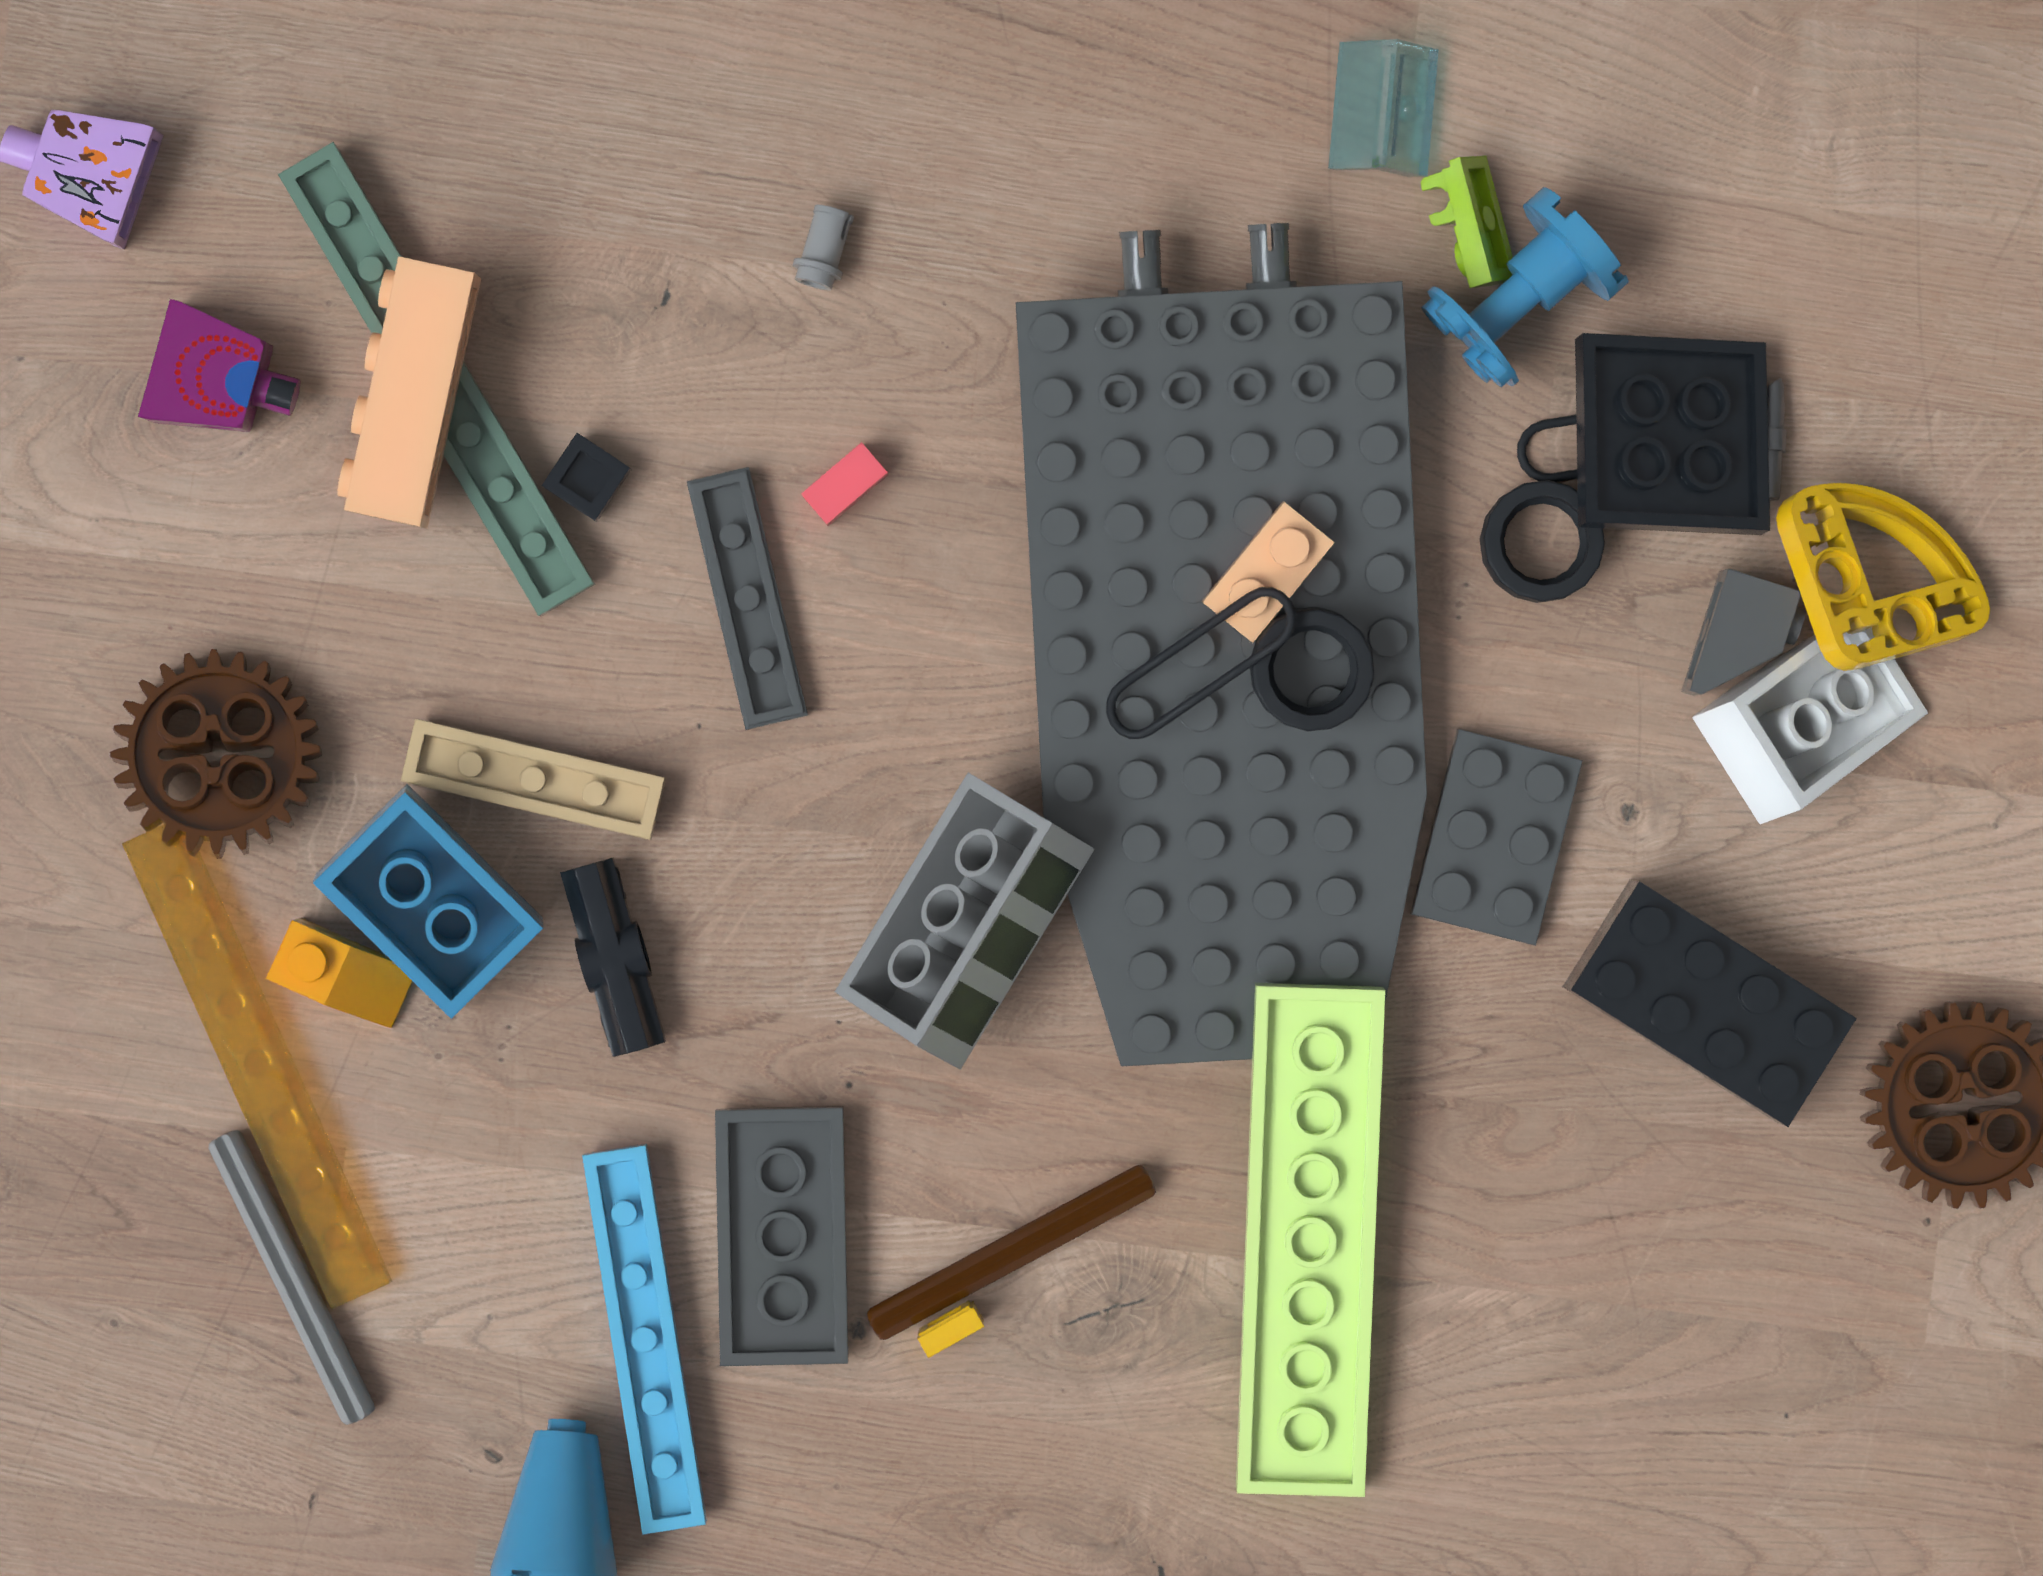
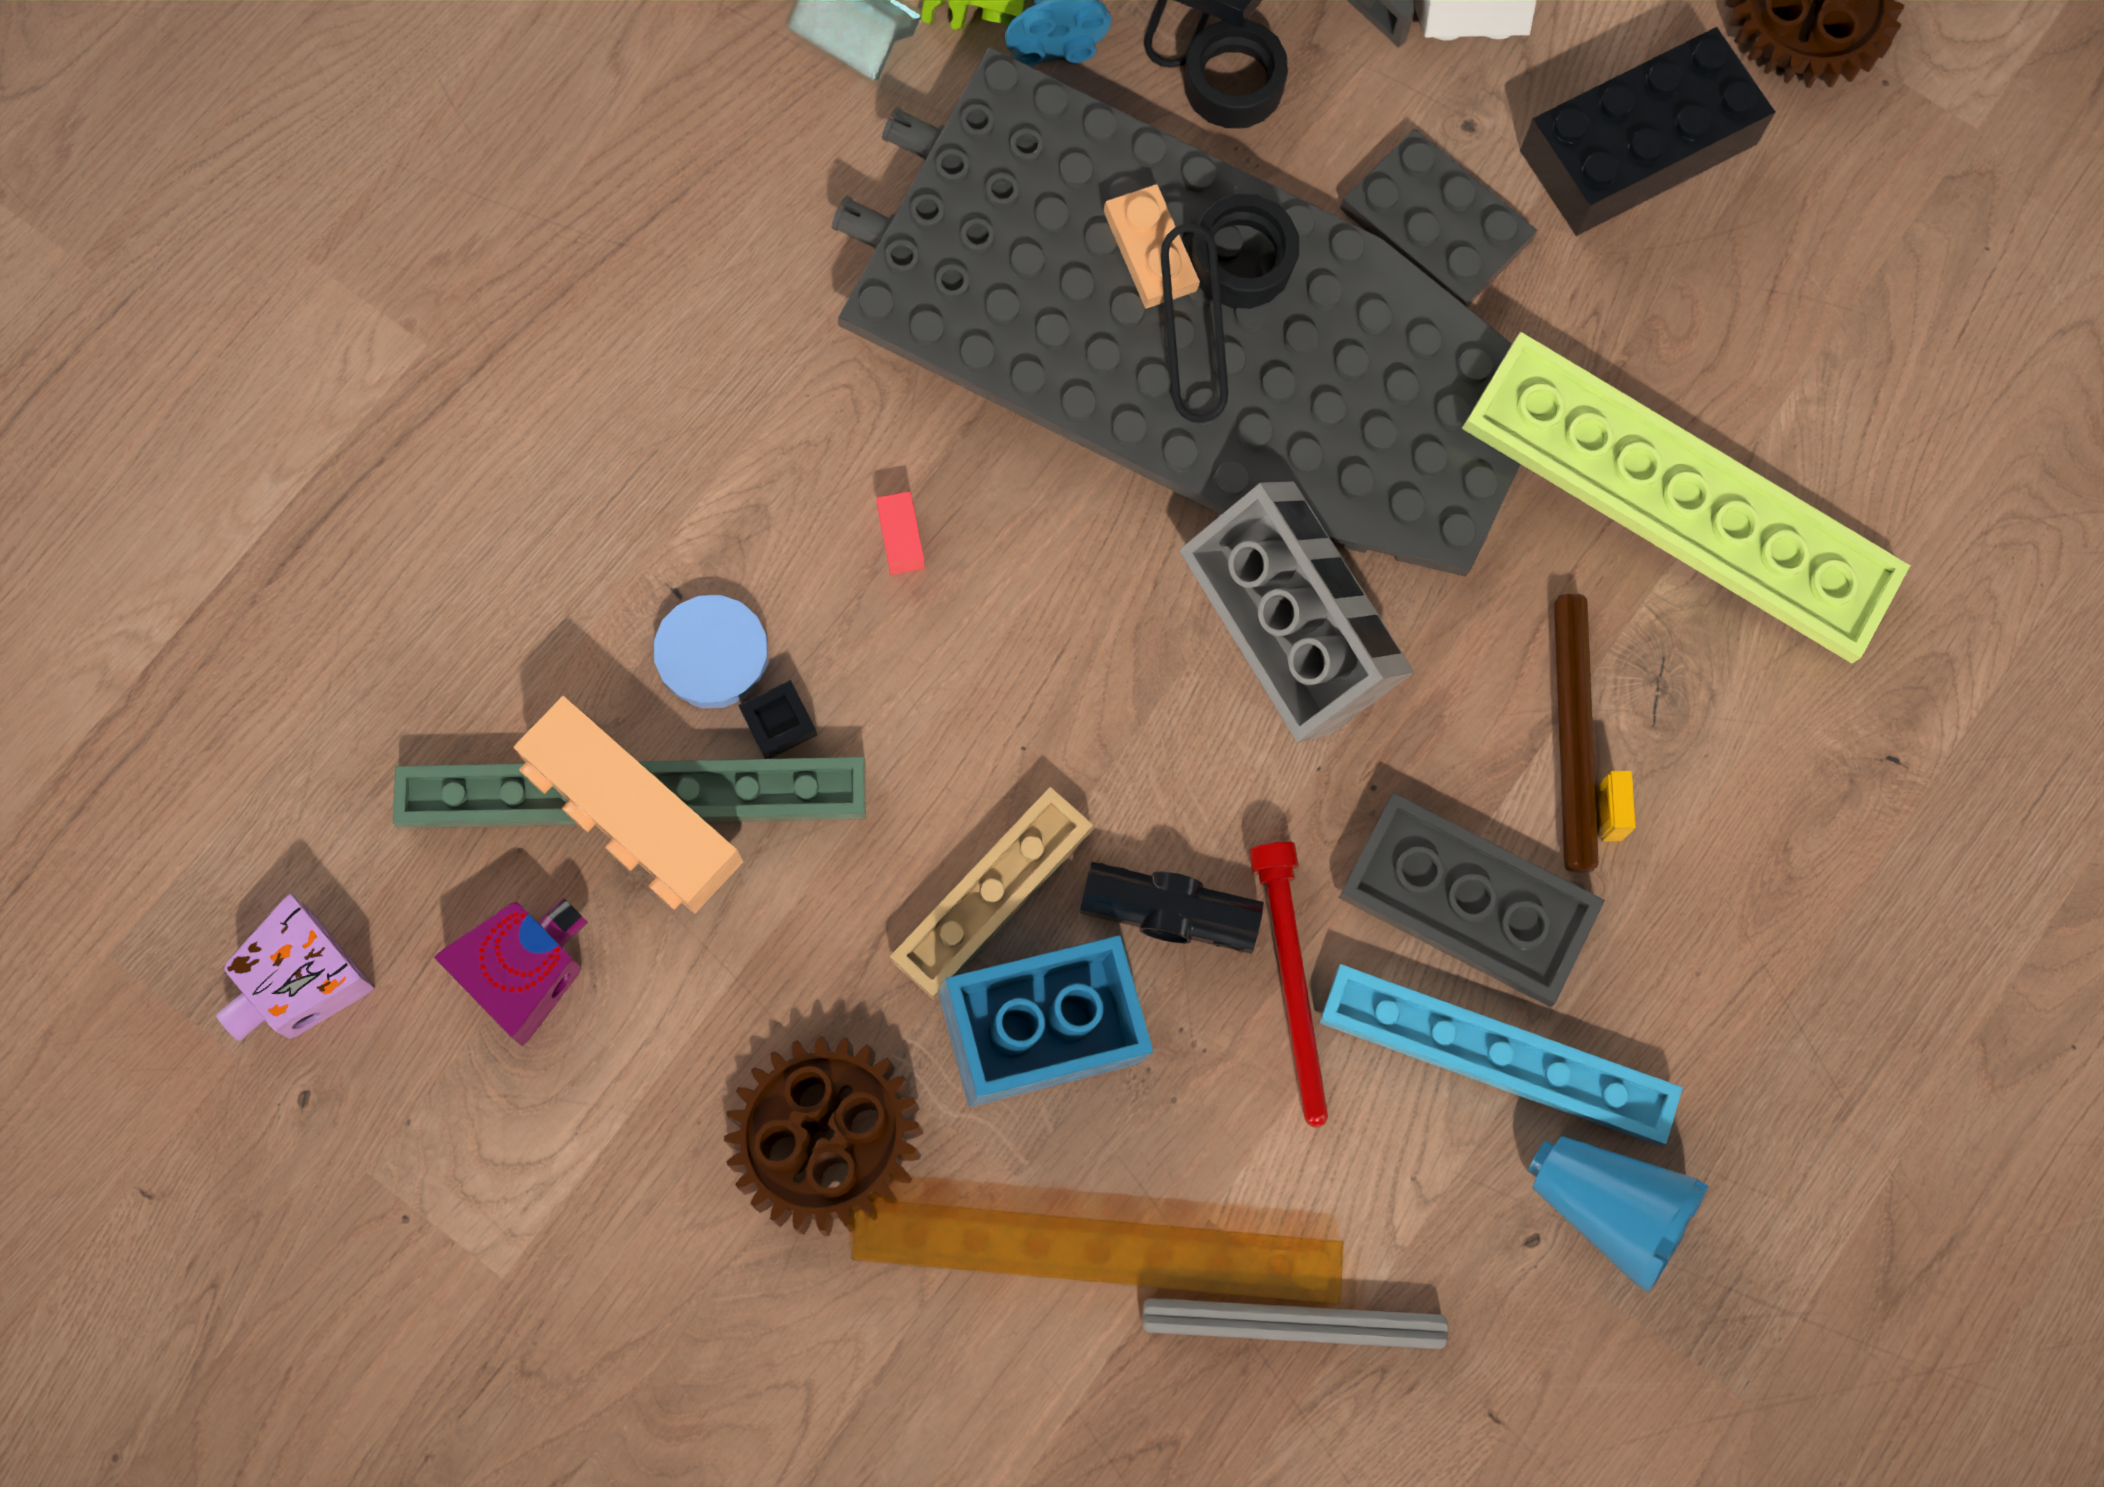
camera: 65 degrees left, 15 degrees down
(339, 973) = (1061, 1134): light orange slope -> none
(621, 370) = (711, 651): none -> light blue tile
(708, 1034) = (1275, 869): none -> red piece
(747, 598) = (945, 654): dark grey tile -> none
(823, 248) = (720, 459): light grey pin -> none

